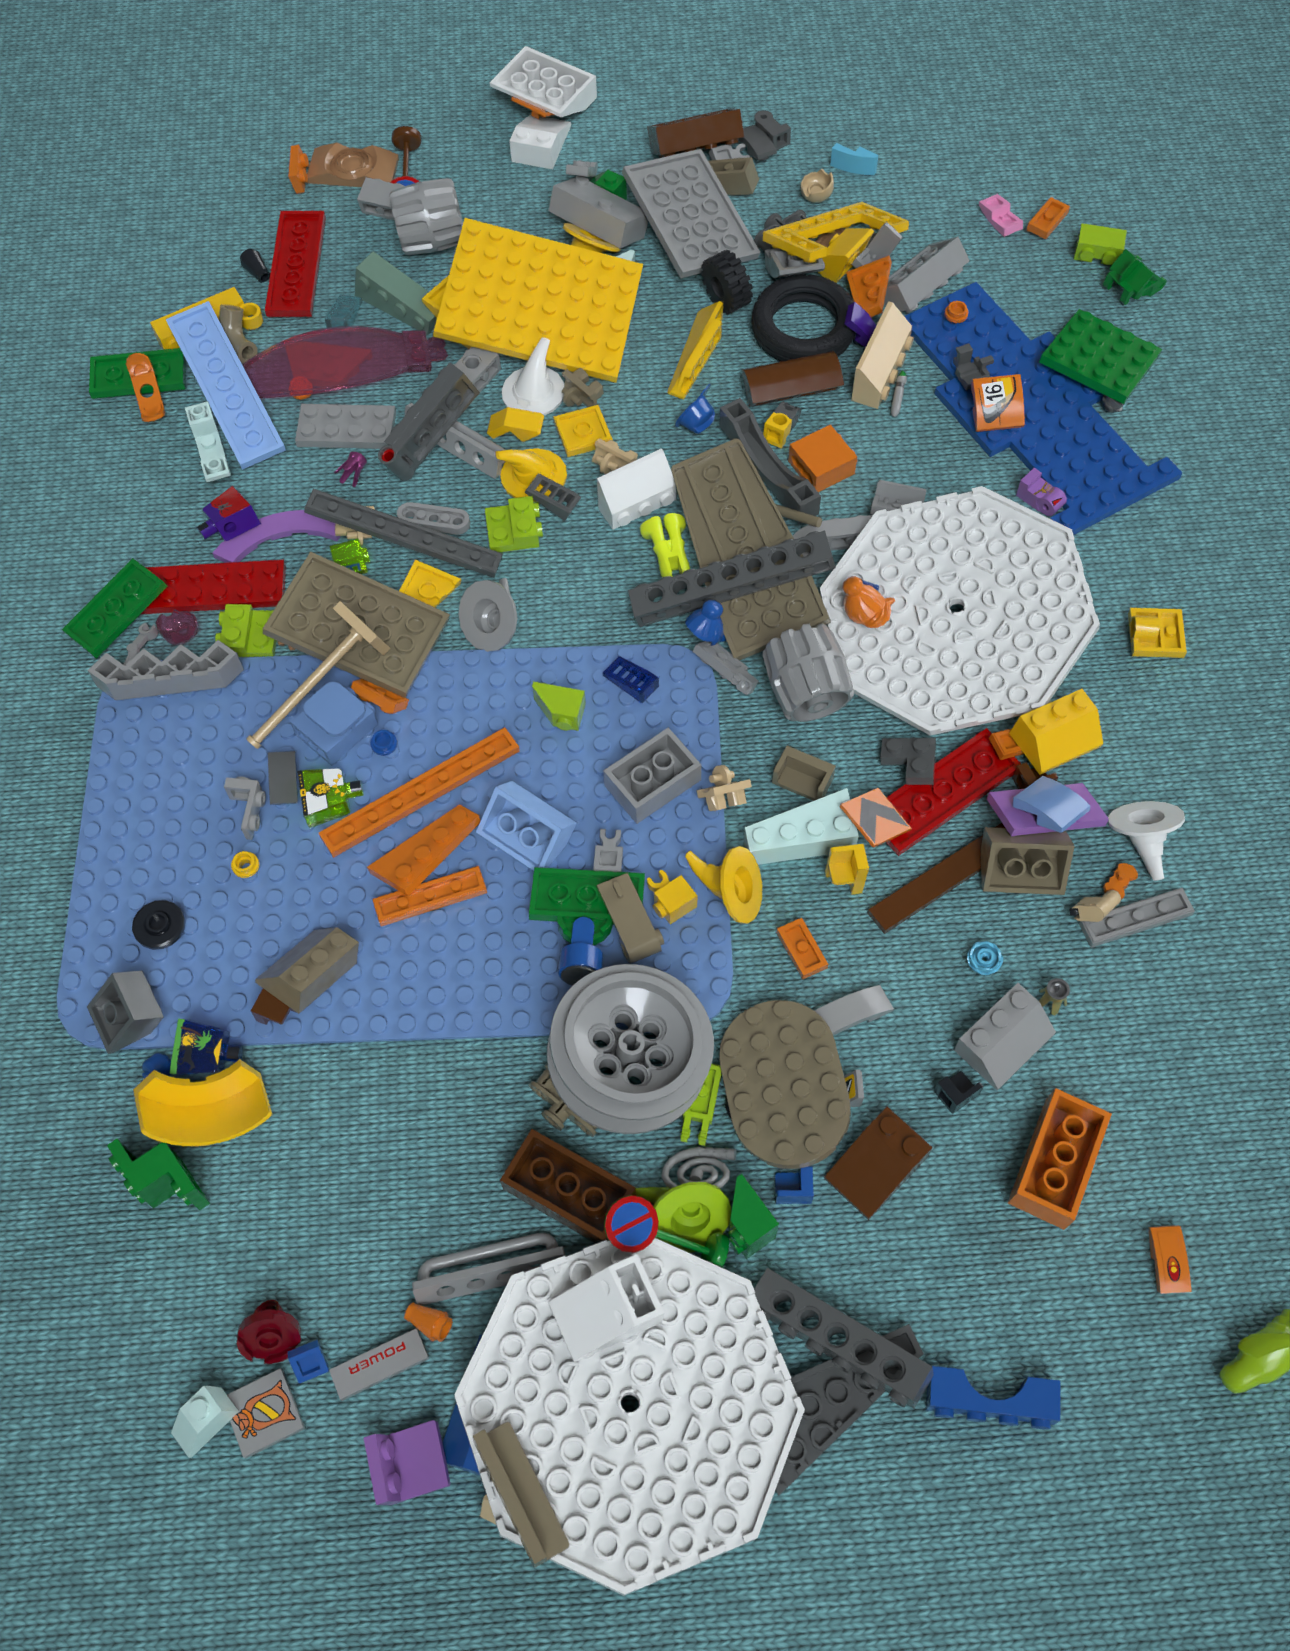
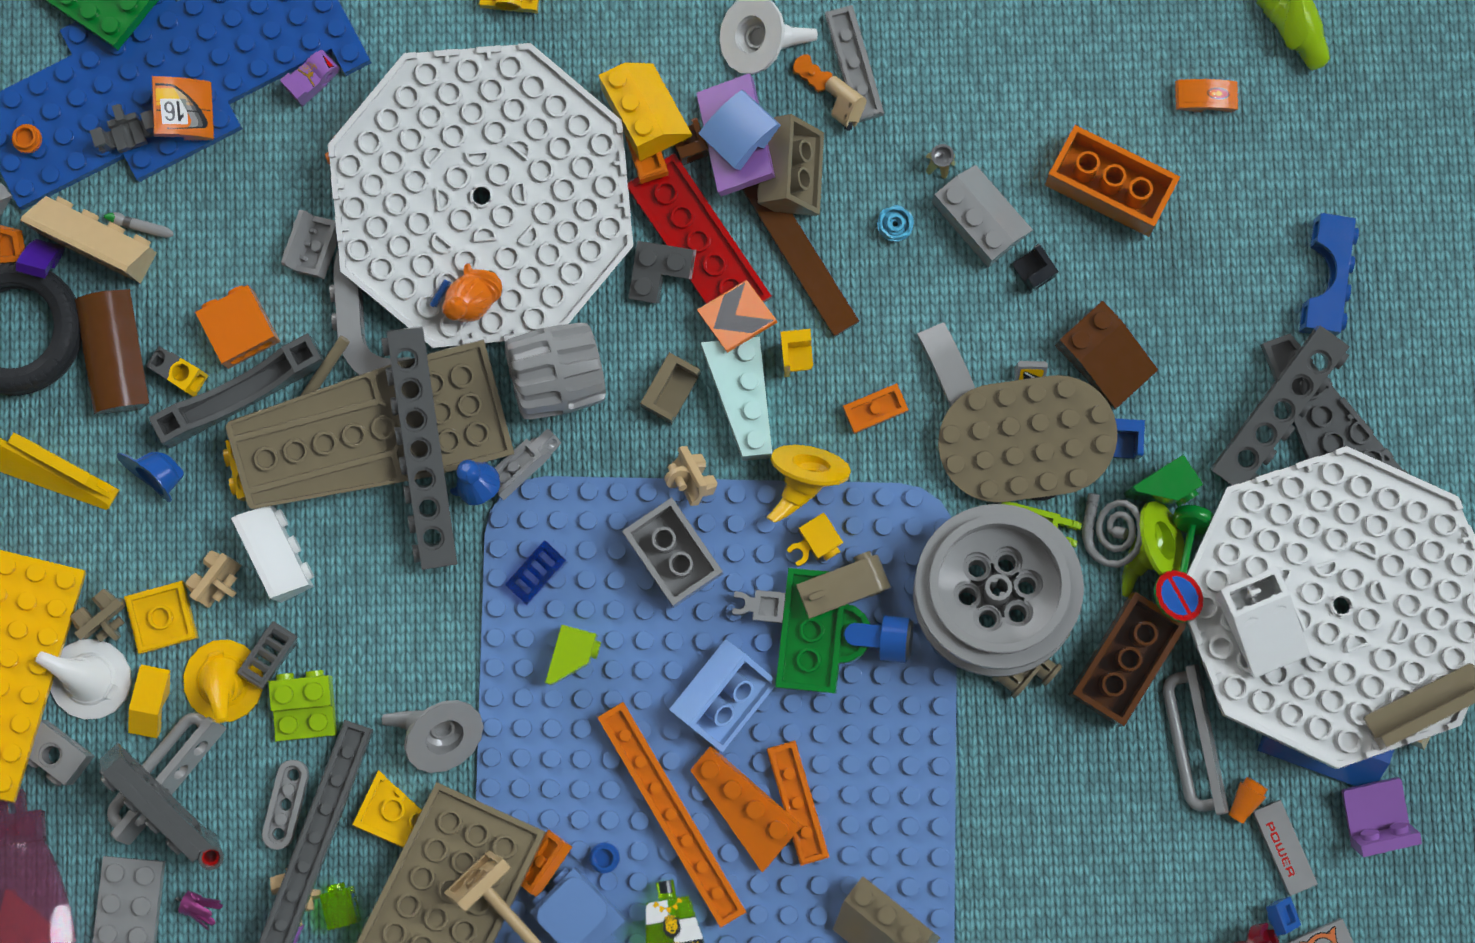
camera: 90 degrees left, 20 degrees up
(669, 552) = (361, 515): neon yellow piece -> none

